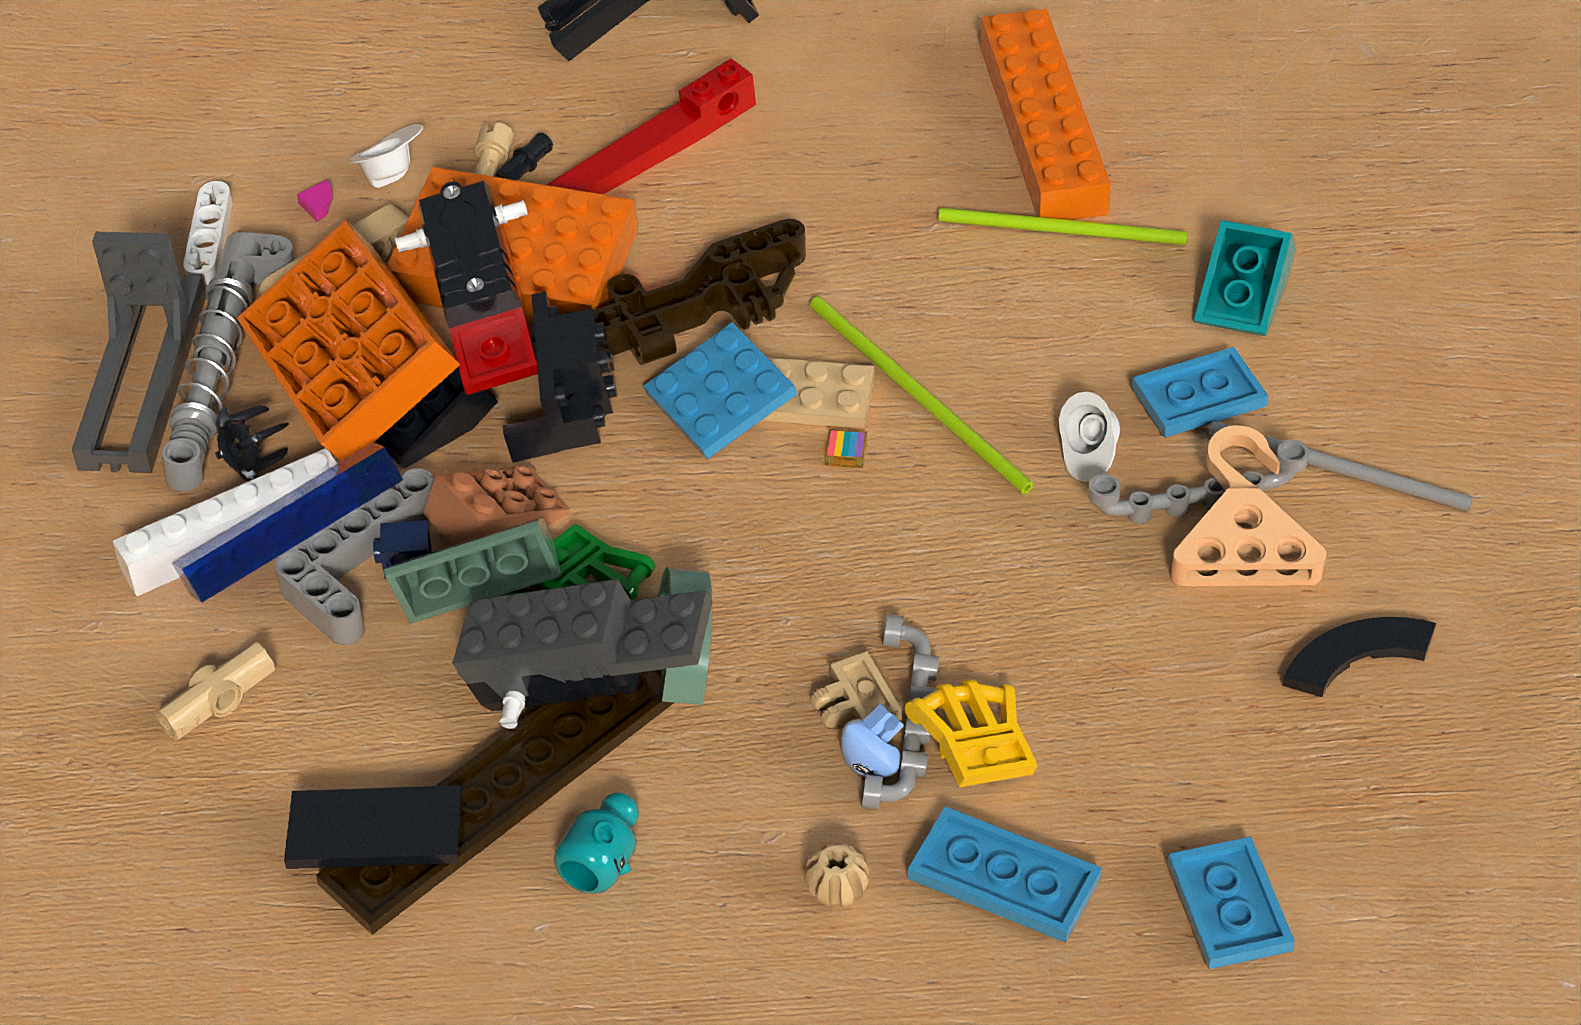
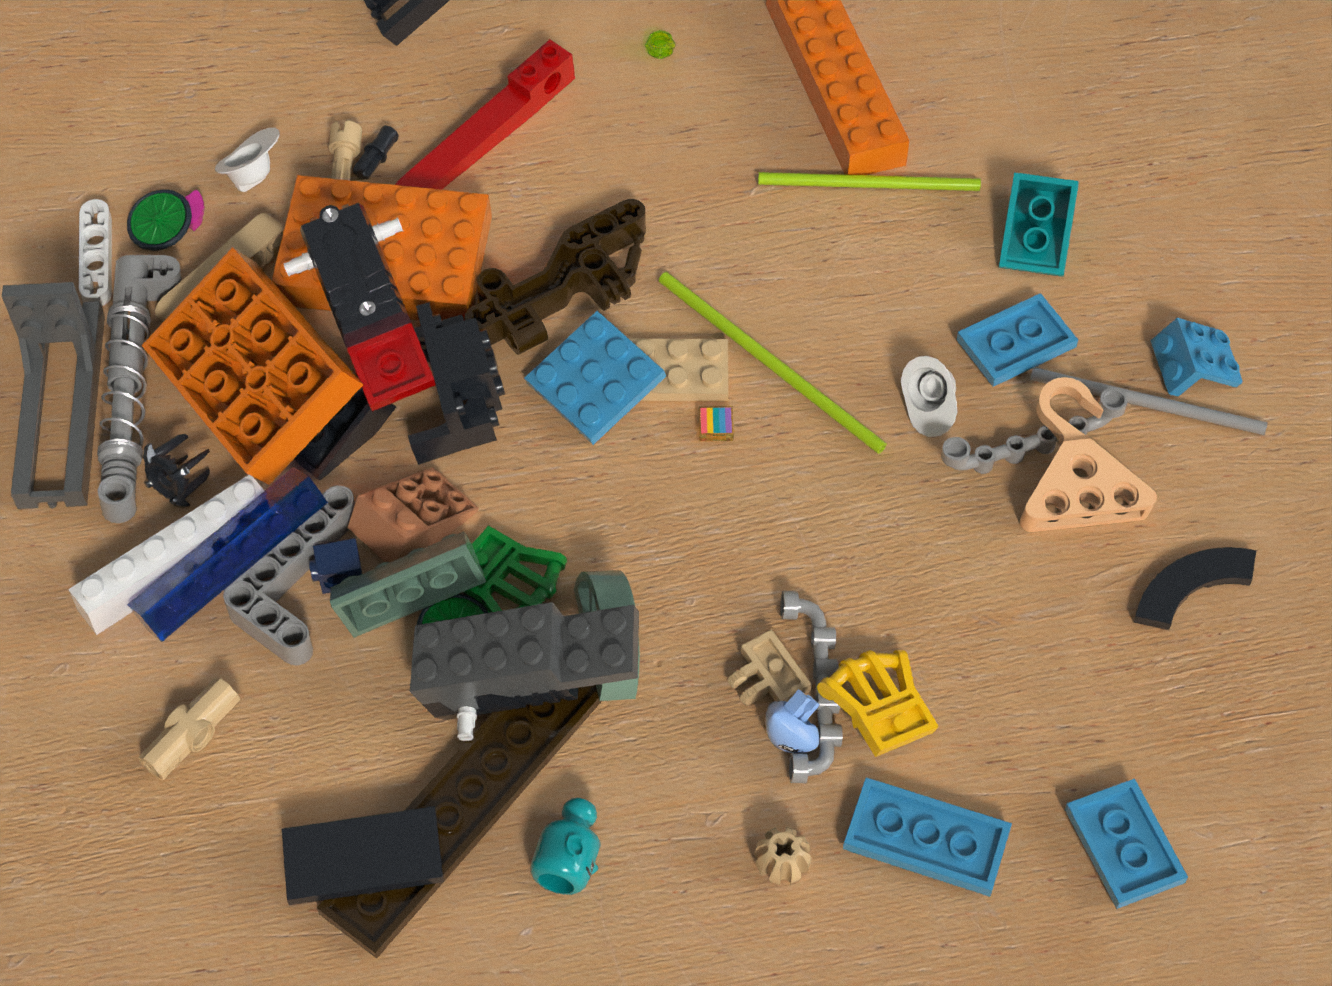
camera: 10 degrees left, 10 degrees up
(281, 206) = (159, 220): none -> green wheel
(855, 77) = (660, 44): none -> clear neon green plate
(1397, 415) = (1194, 352): none -> dark azure bracket

